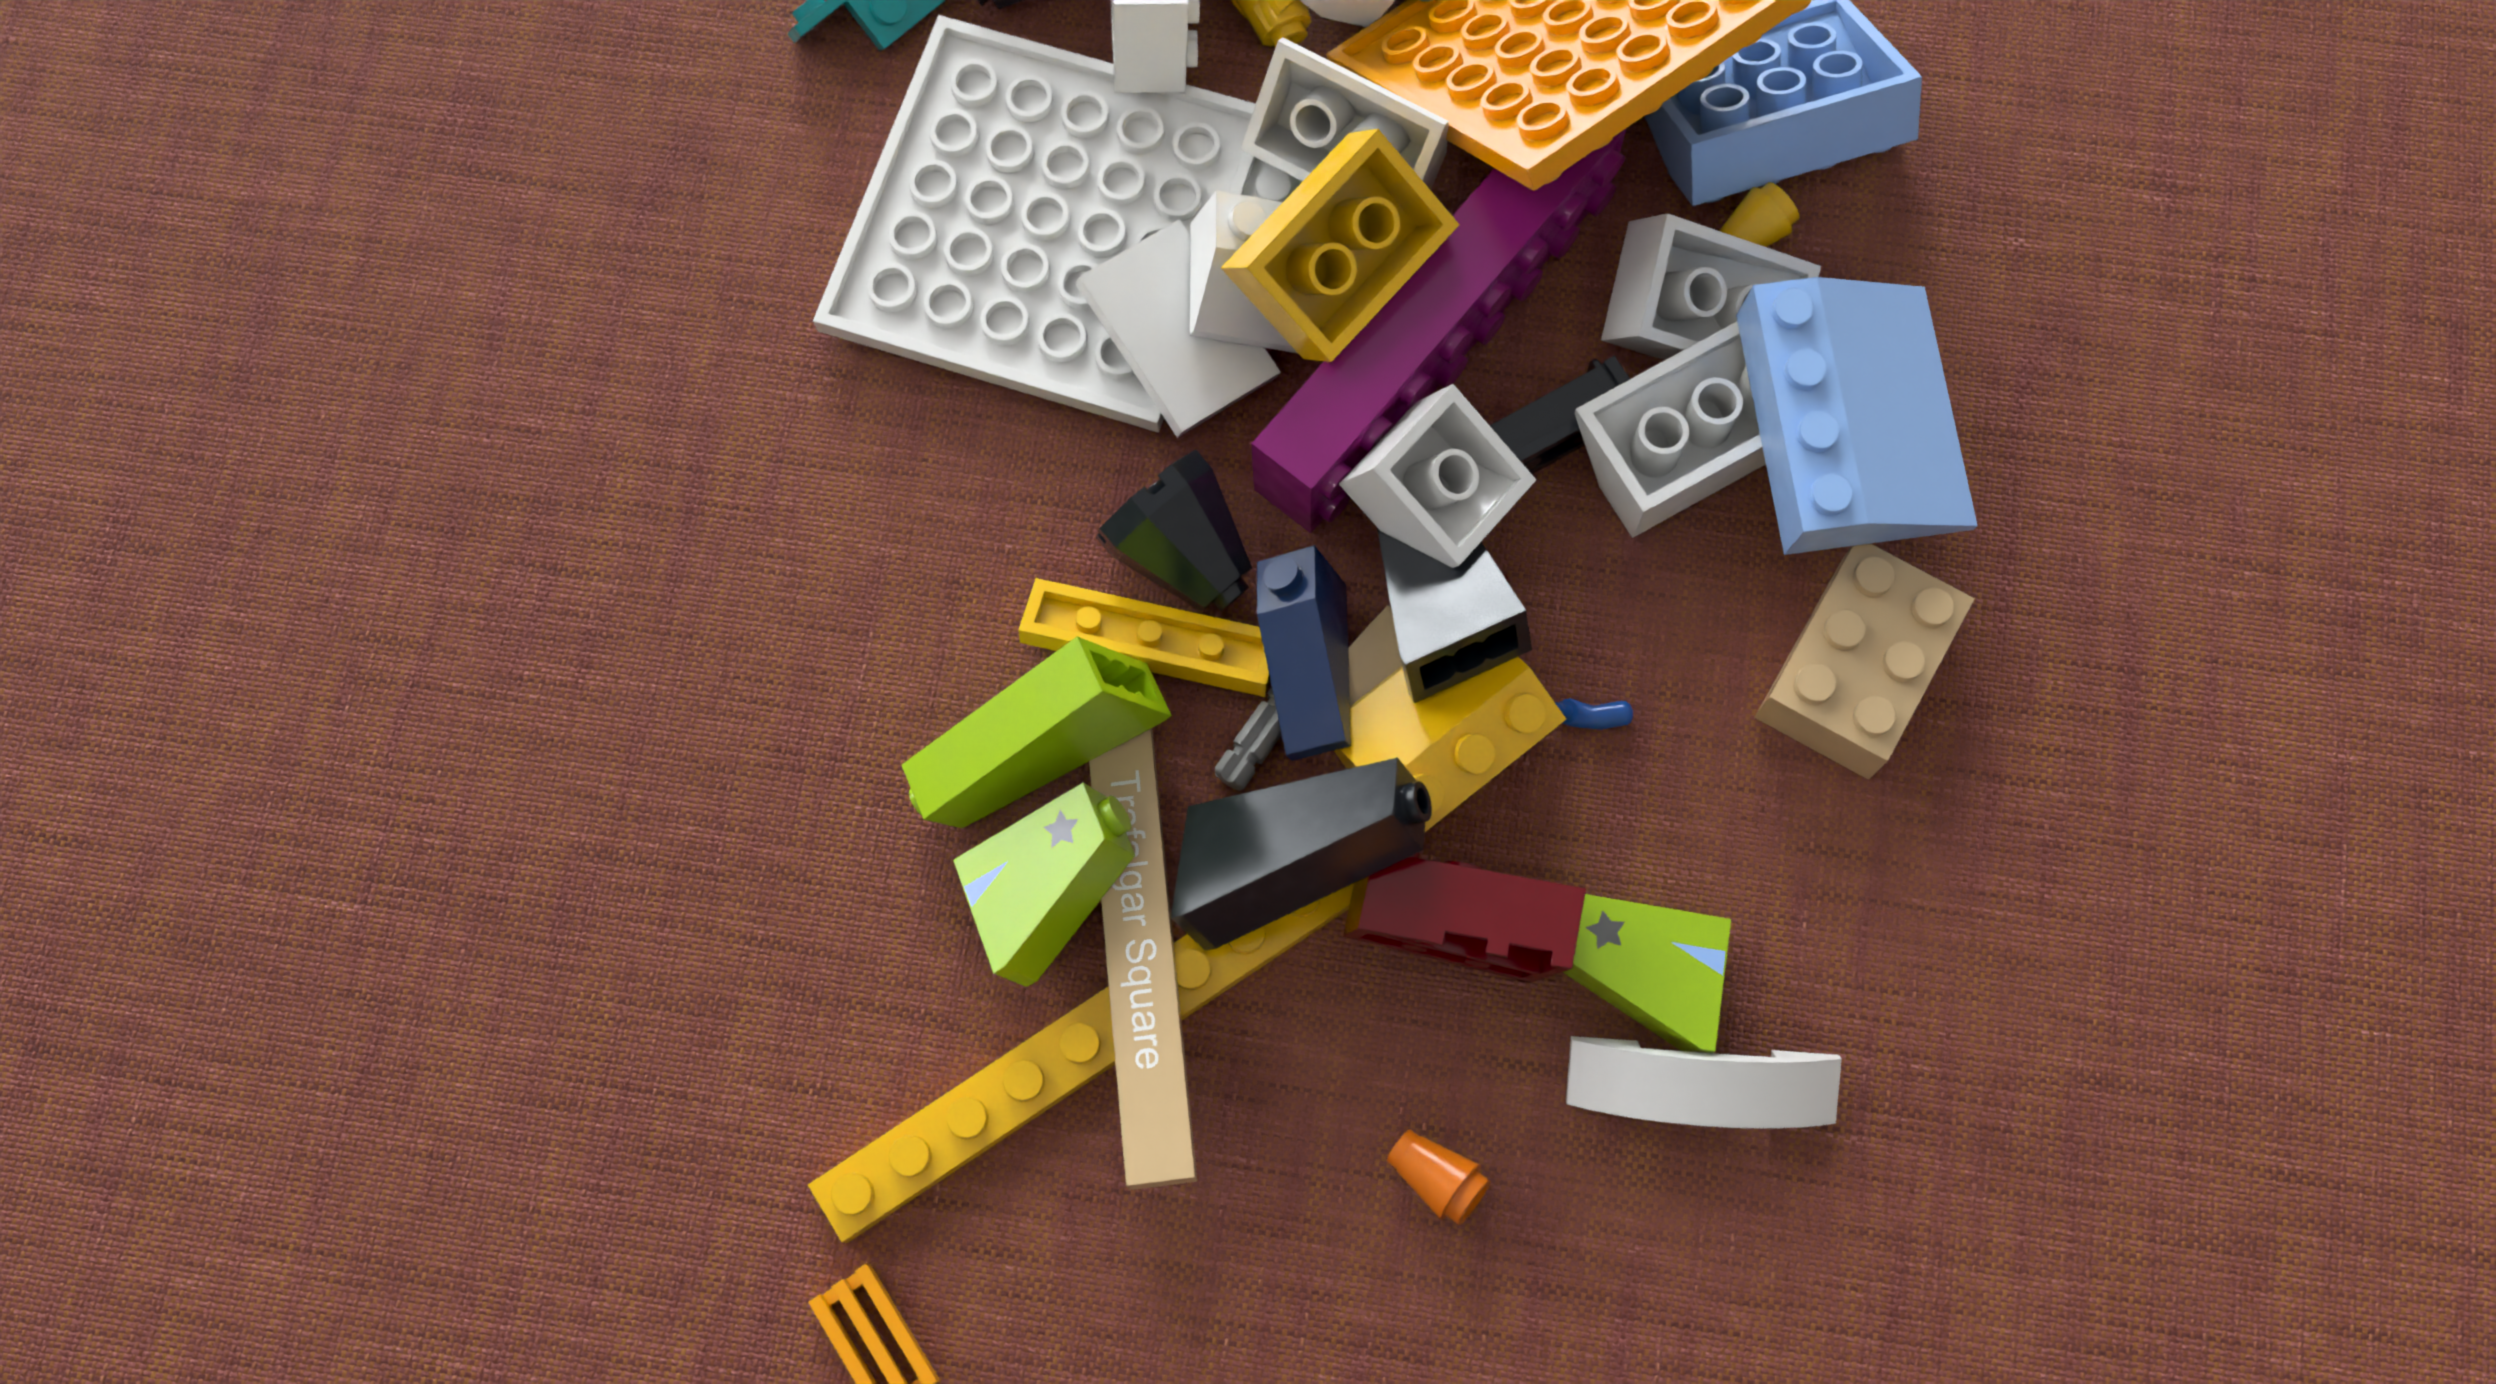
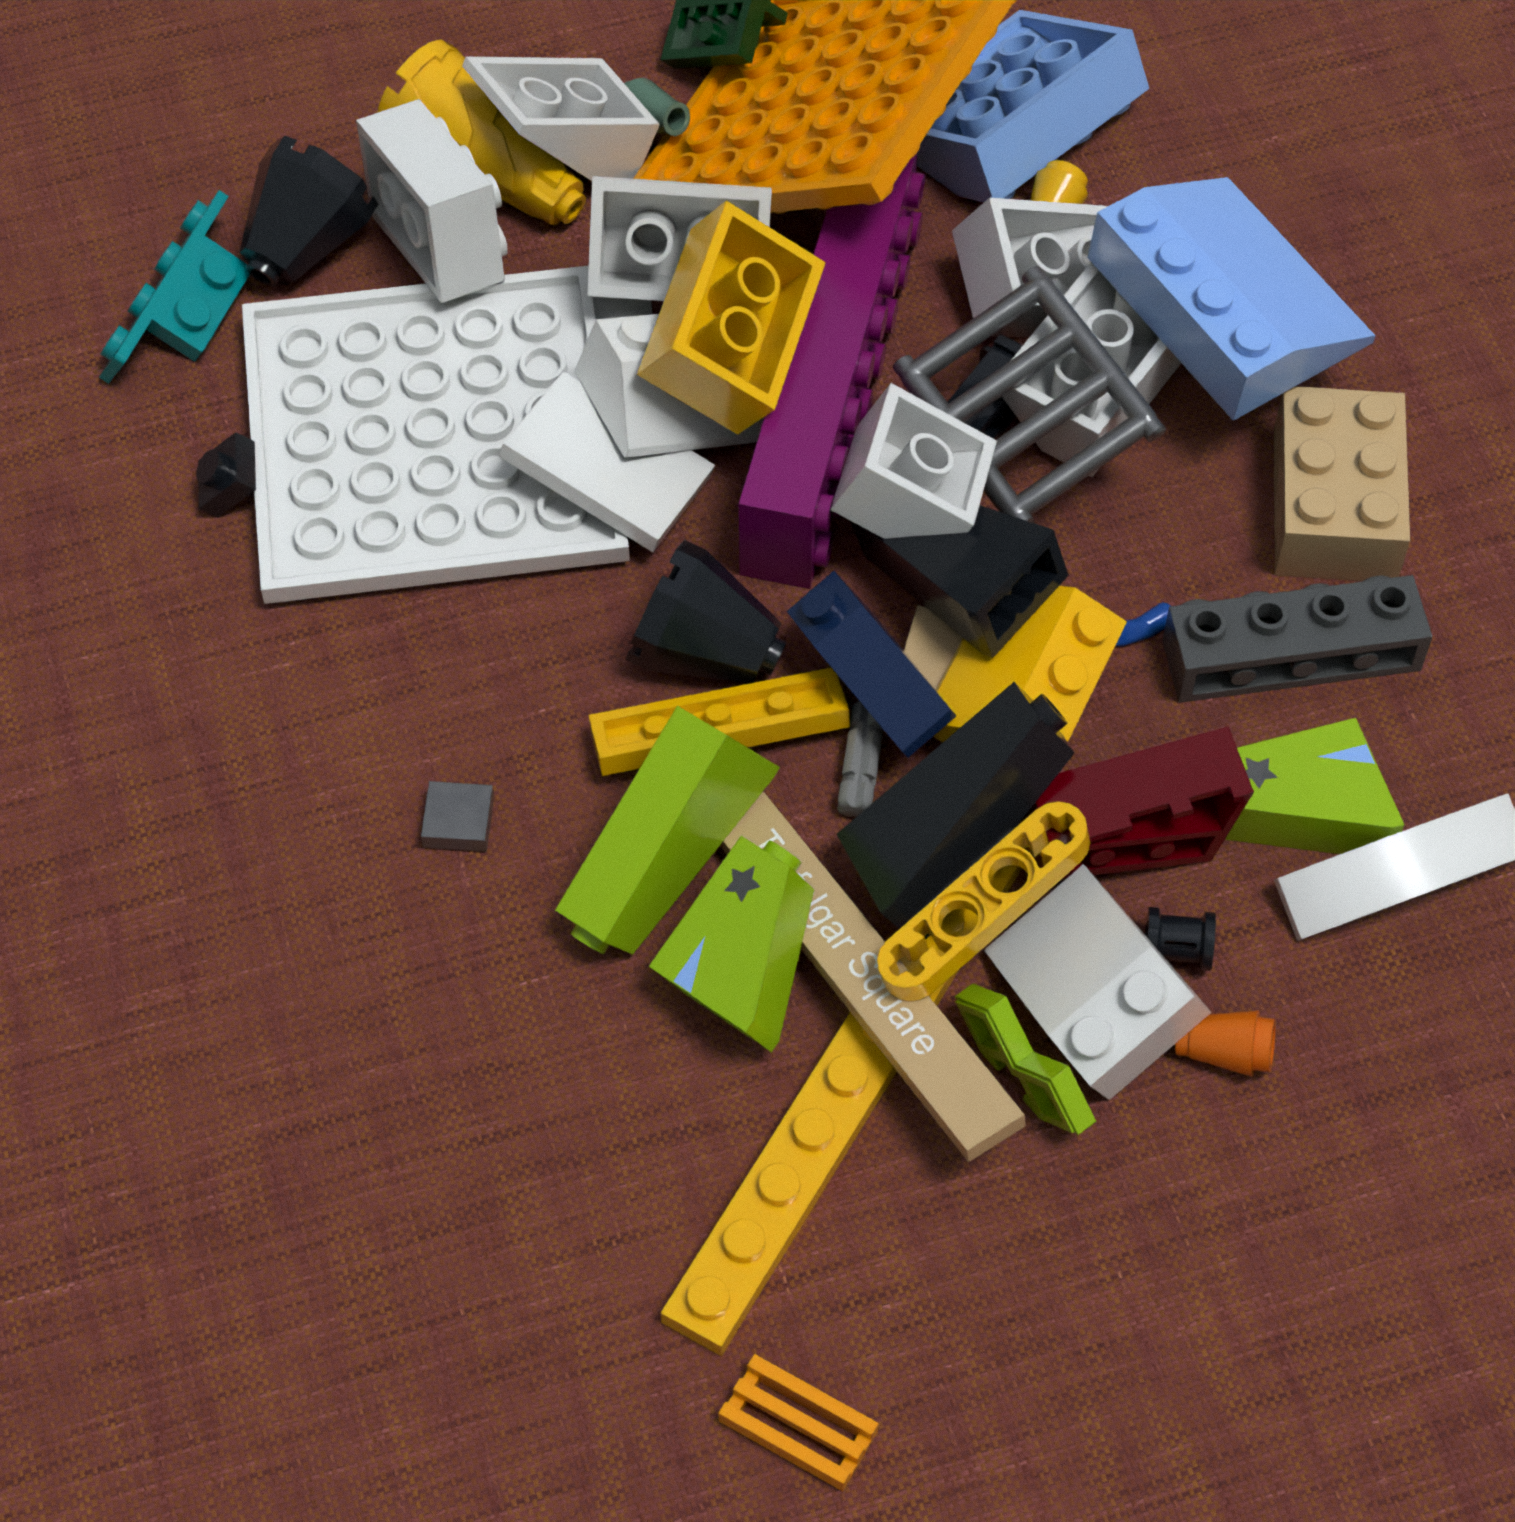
camera: 30 degrees left, 15 degrees down
(841, 187) = (226, 474): none -> black plate
(879, 621) = (457, 816): none -> flat silver tile
(1238, 1109) = (1000, 1038): none -> lime tile
(1269, 962) = (975, 893): none -> yellow beam
(1342, 1065) = (1096, 983): none -> white slope
(1449, 1053) = (1183, 937): none -> black bush
(1675, 461) = (1070, 333): none -> flat silver bar
(1732, 800) = (1296, 638): none -> dark grey brick

